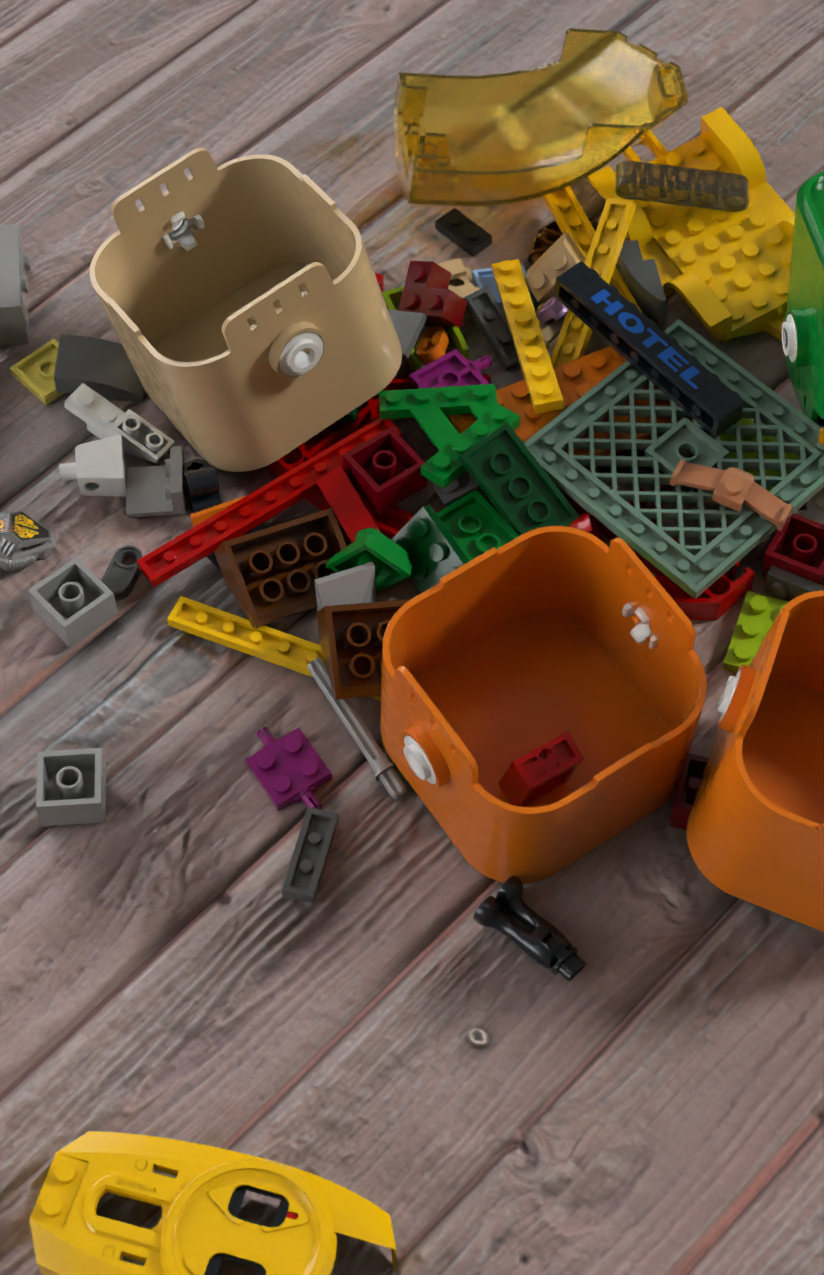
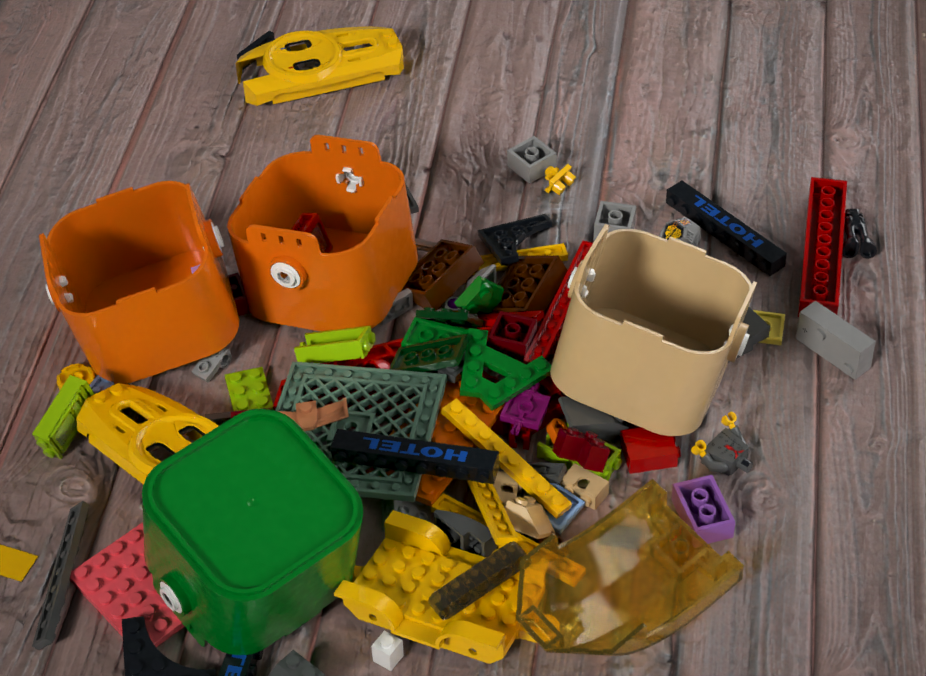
camera: 145 degrees right, 10 degrees down
(71, 735) = (555, 178): none -> yellow hips
(236, 673) = (505, 238): none -> black plate
(288, 769) = (443, 221): magenta plate -> none
(363, 188) = (703, 508): none -> medium lavender brick
(552, 309) = (504, 483): lavender plate -> none

